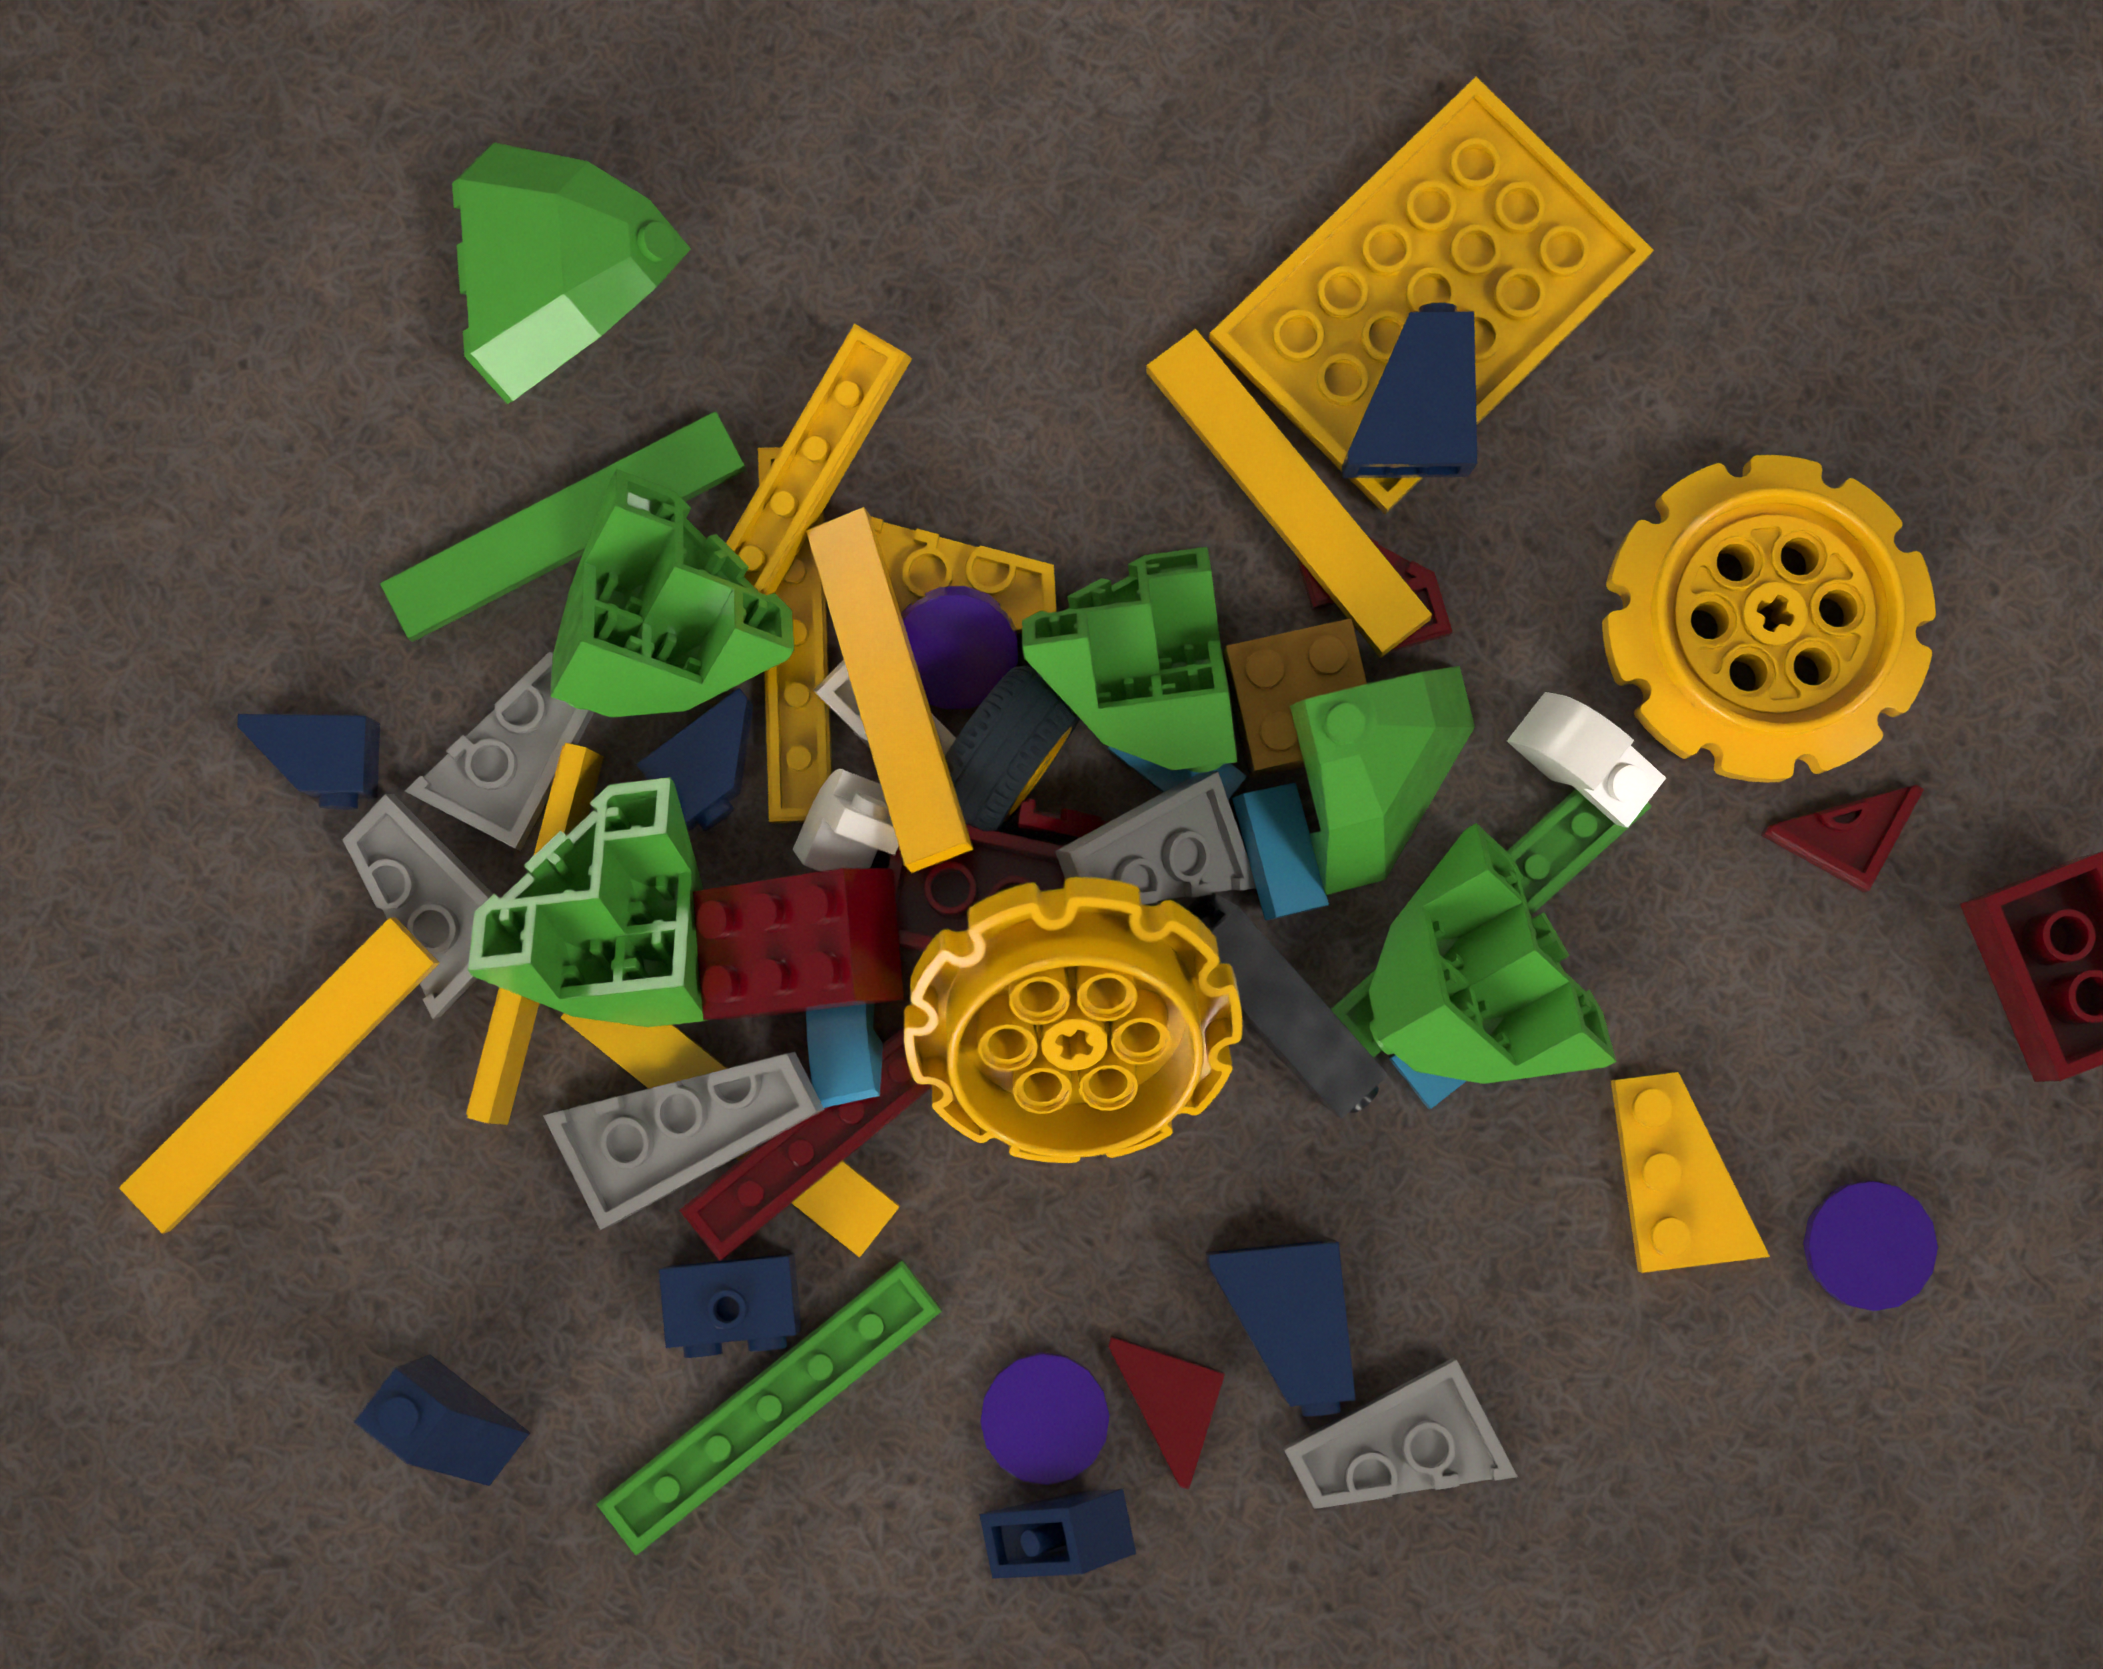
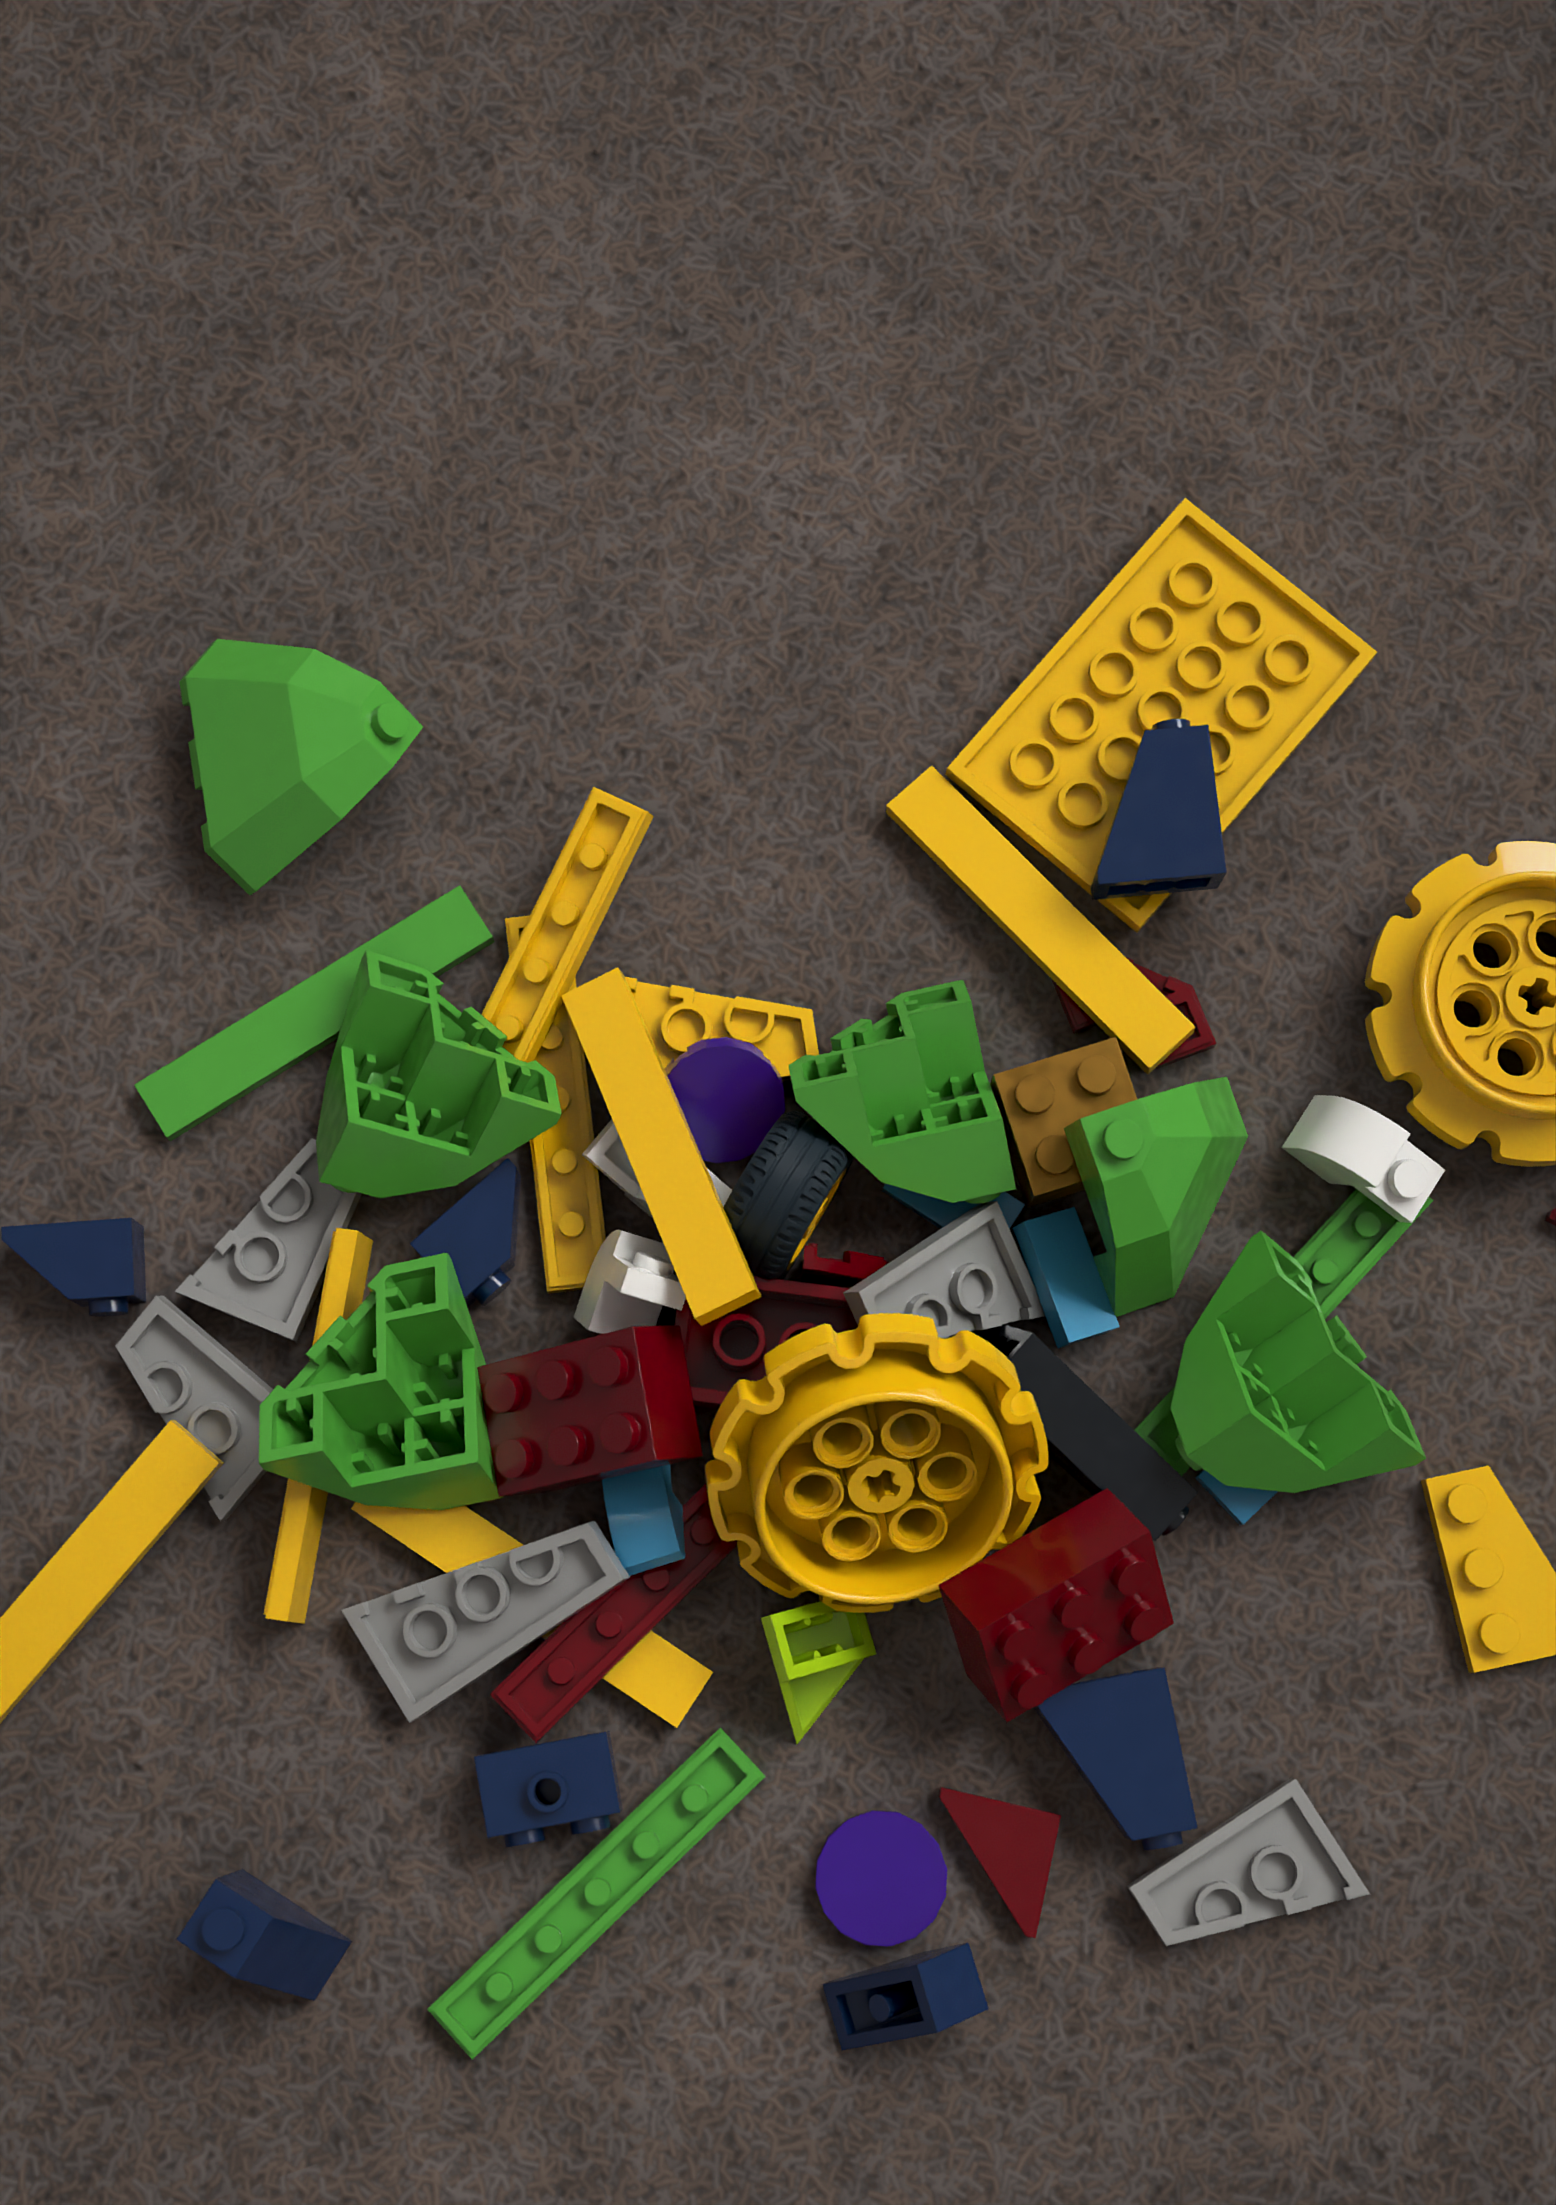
camera: 10 degrees left, 5 degrees down
(998, 1200) = (814, 1657): none -> lime slope
(1239, 1172) = (1057, 1604): none -> dark red brick

